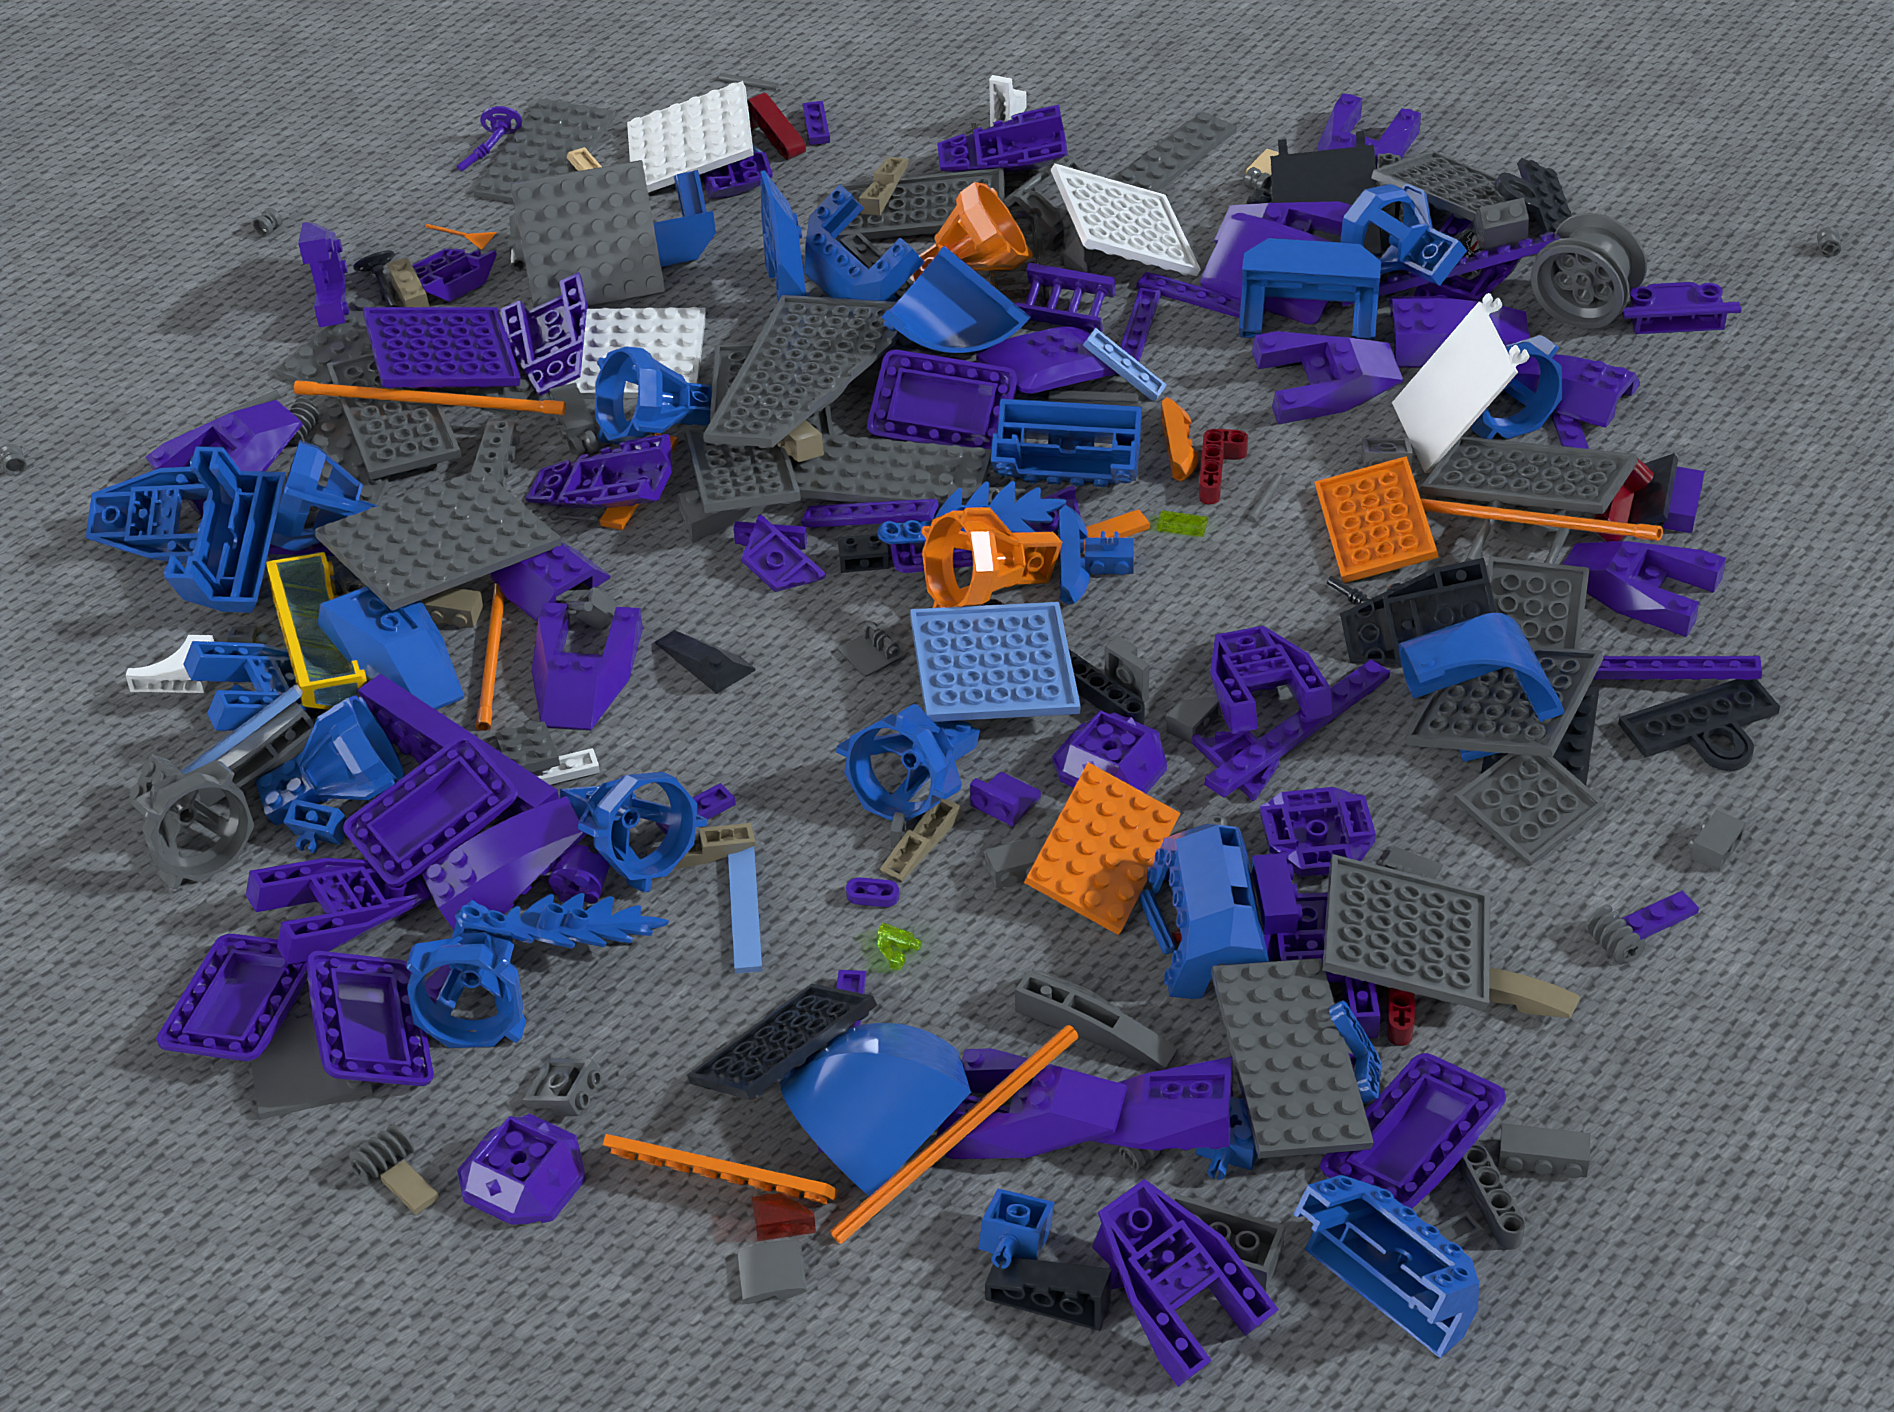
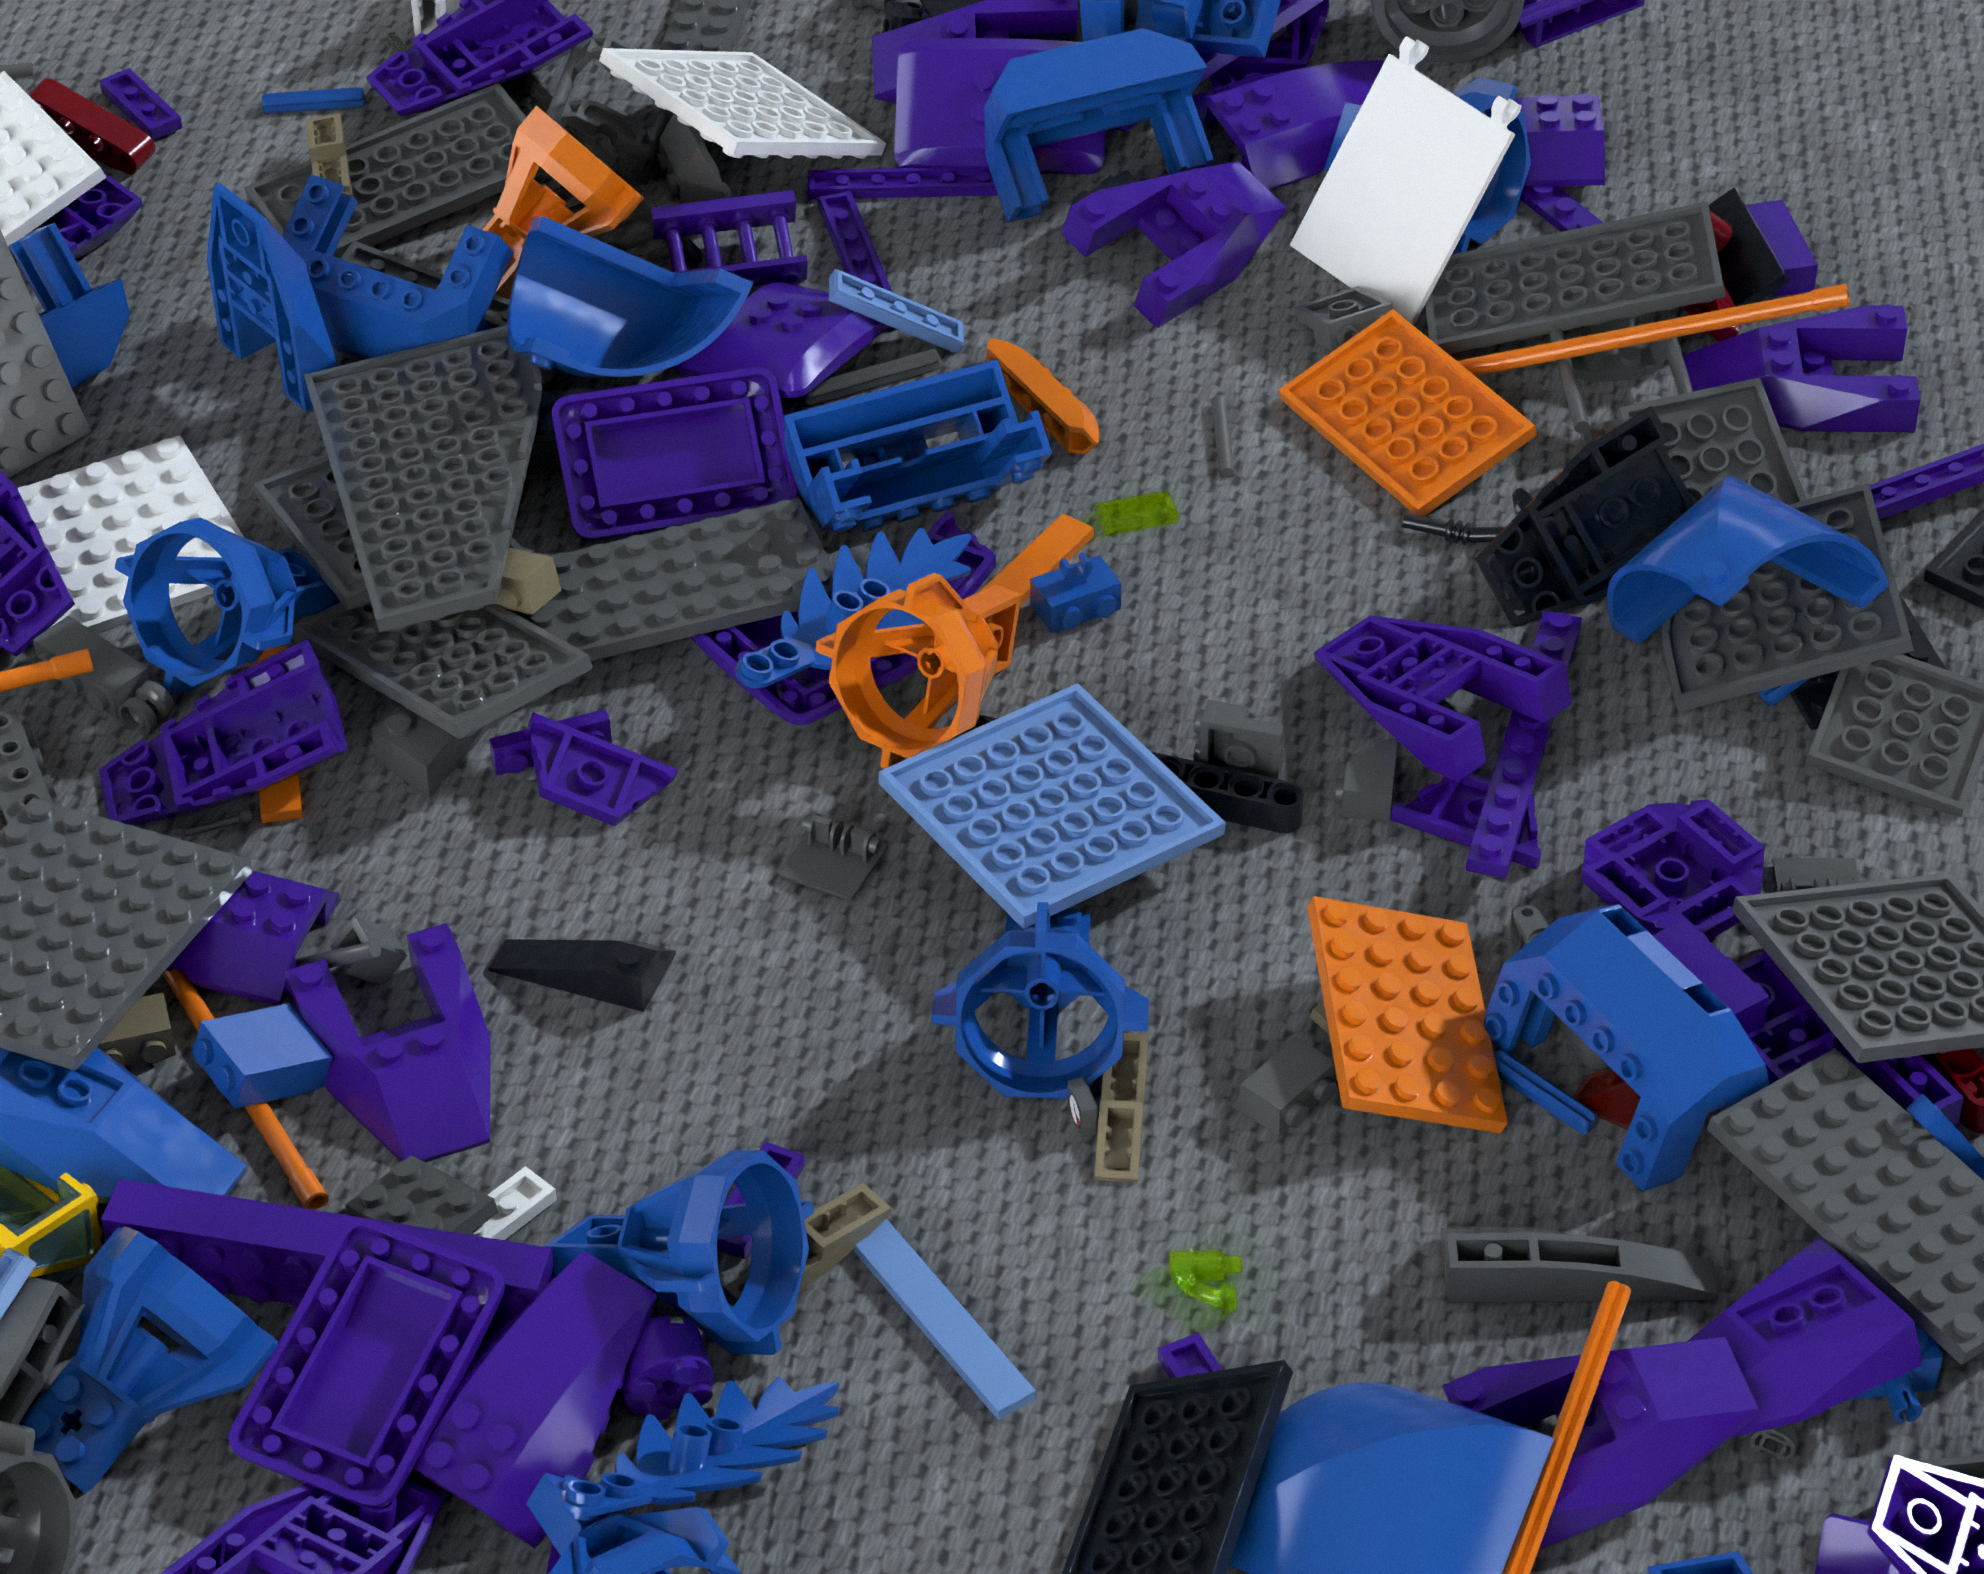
camera: 30 degrees left, 0 degrees up
(315, 823) = (168, 1461): blue brick -> none
(503, 641) = (261, 1055): none -> blue brick
(862, 553) = (713, 718): black brick -> none
(869, 513) = (687, 654): dark purple tile -> none
(873, 892) = (1111, 1213): dark purple plate -> none
(908, 148) = (313, 100): none -> blue axle
(1003, 797) = (1196, 1000): dark purple bracket -> none
(1072, 576) = (1038, 632): blue brick -> none
(1117, 747) = (1281, 865): dark purple piece -> none
(1218, 445) = (1110, 393): dark red beam -> none

